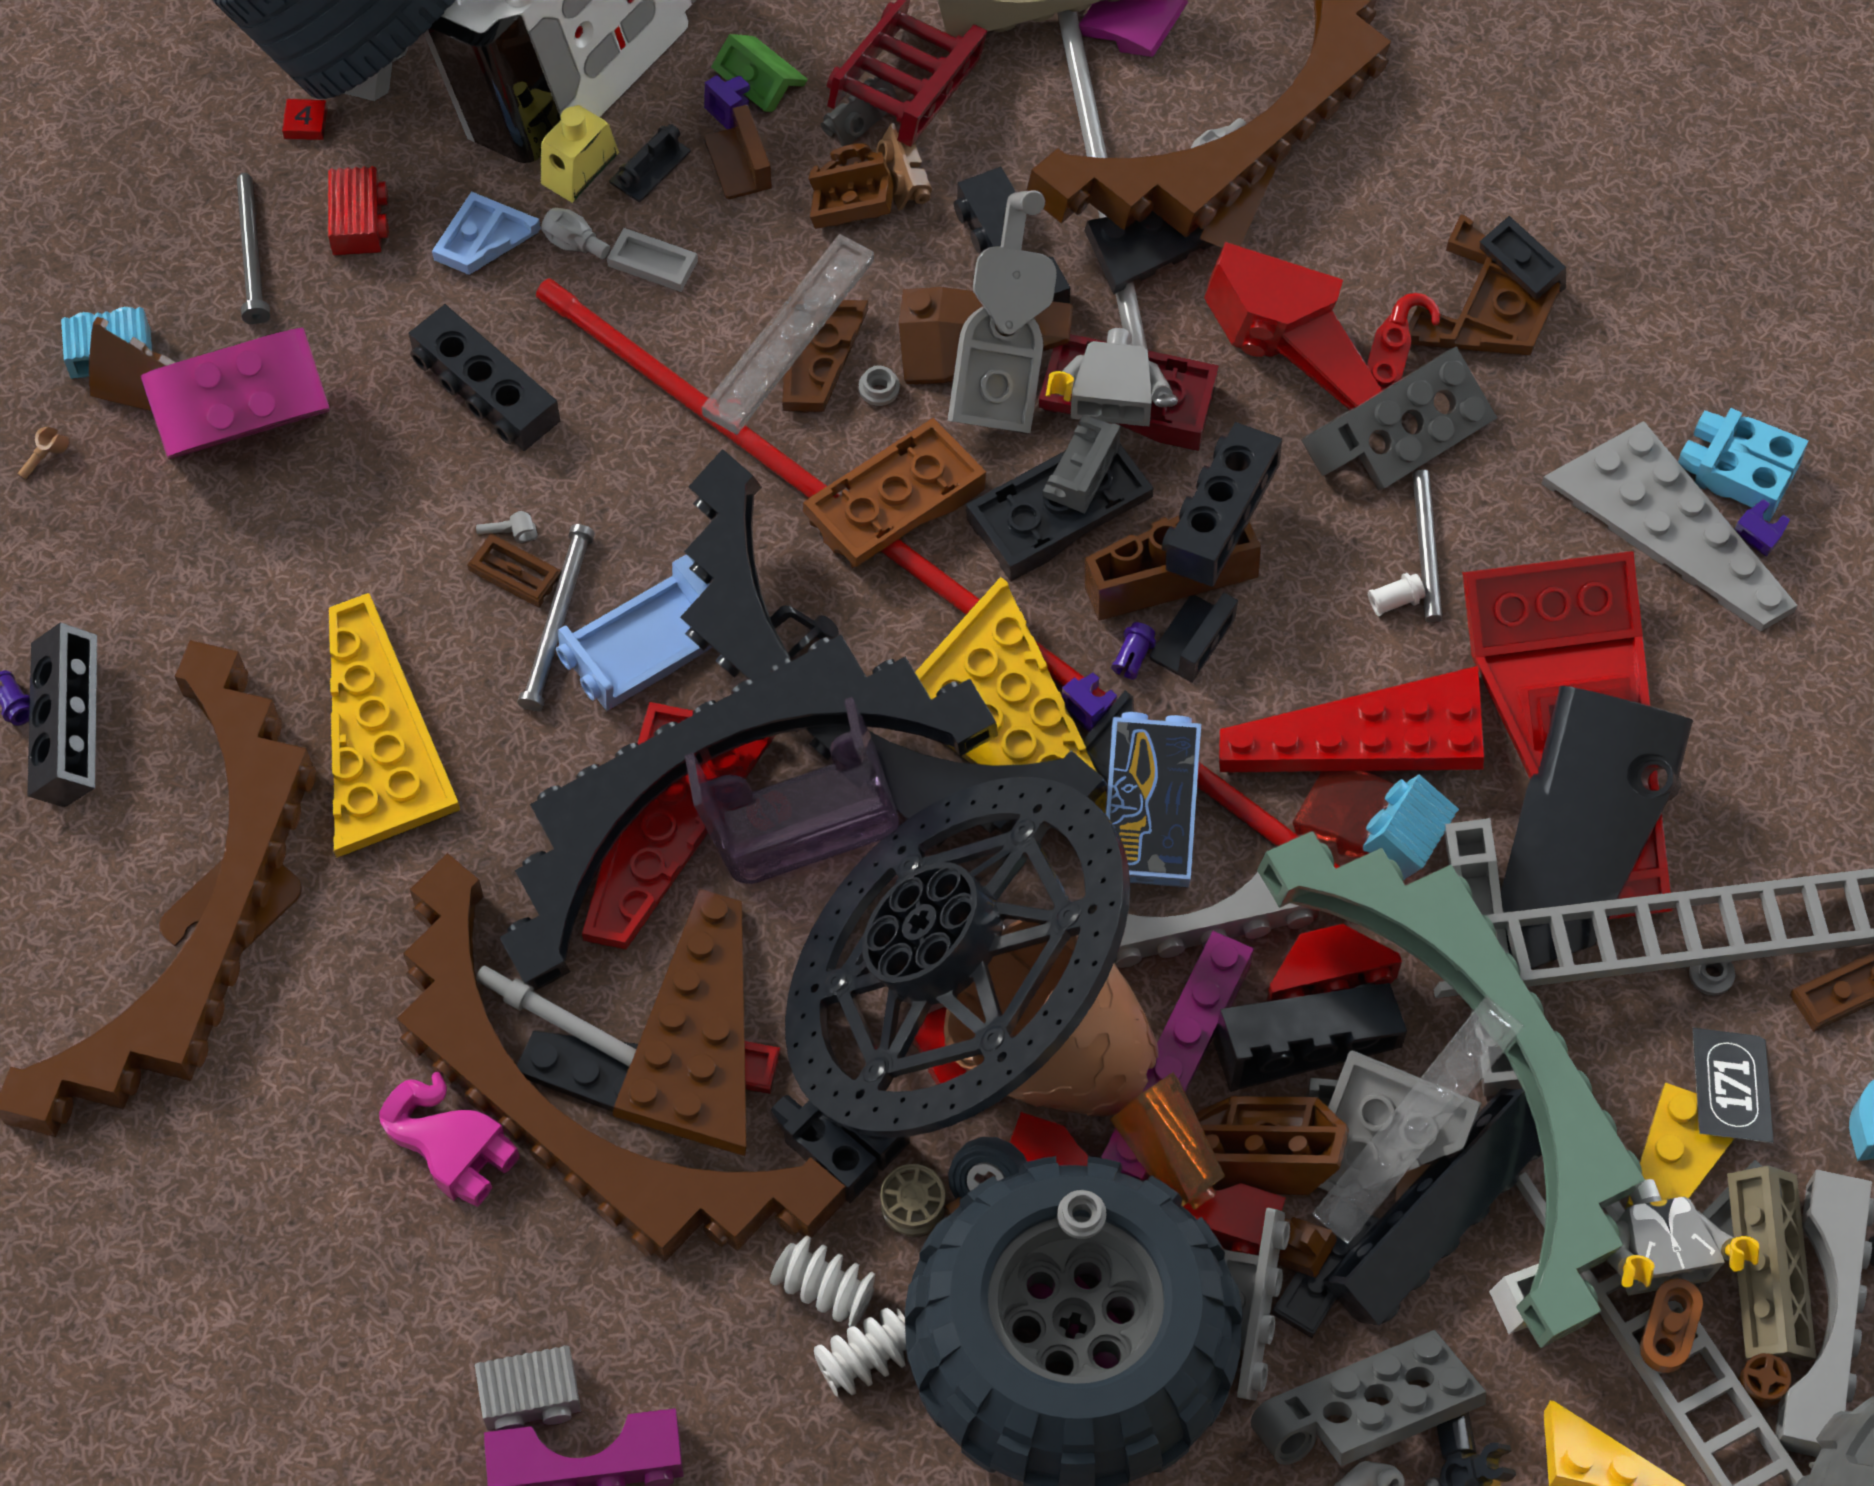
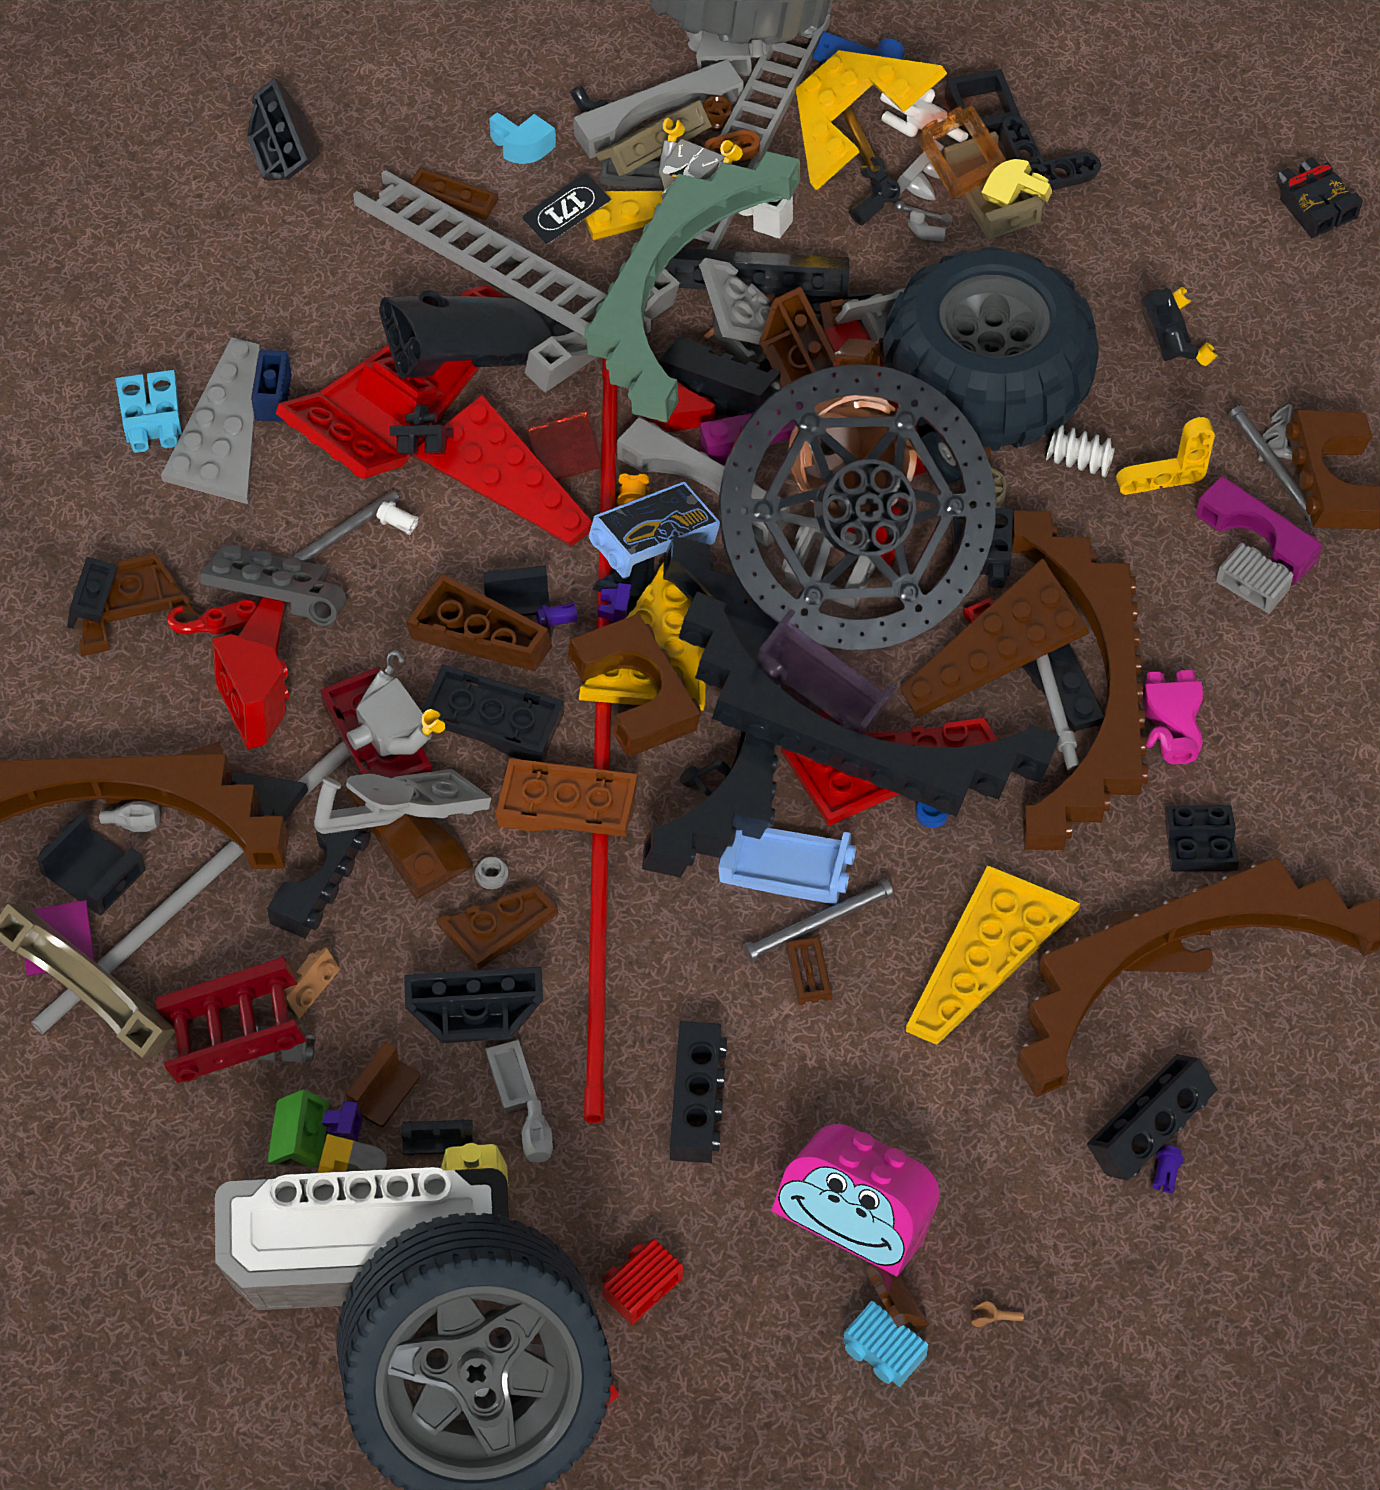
camera: 130 degrees left, 5 degrees down
(254, 309) = (771, 1281): dark grey bar -> none
(292, 1042) = (1201, 838): none -> black slope
(482, 233) = (587, 1191): light blue wing -> none
(519, 523) = (776, 991): light grey hand -> none
(685, 82) = (348, 1155): none -> leg
(739, 1434) = (1184, 469): none -> yellow beam
(744, 256) = (474, 1003): none -> black wedge
(787, 334) = (508, 930): clear plate -> none
(823, 1281) = (1066, 493): white piece -> none
(850, 187) = (355, 990): reddish brown slope -> none
(1005, 656) = (634, 647): none -> reddish brown arch
(1084, 464) = (465, 698): dark grey hinge -> none
(1085, 1201) = (956, 327): light grey plate -> none
(1193, 87) = (89, 865): none -> black panel
(1222, 504) = (441, 586): black brick -> none
(1228, 834) = (632, 488): none -> light orange brick
(1294, 1418) = (879, 218): dark grey hinge -> none
(1410, 824) = (556, 402): medium azure brick -> none
(1417, 1119) = (722, 275): clear plate -> none
(1479, 667) = (434, 435): none -> black hips
(1681, 583) = (270, 384): none -> dark blue brick
(1757, 531) = (194, 374): dark purple tile -> none

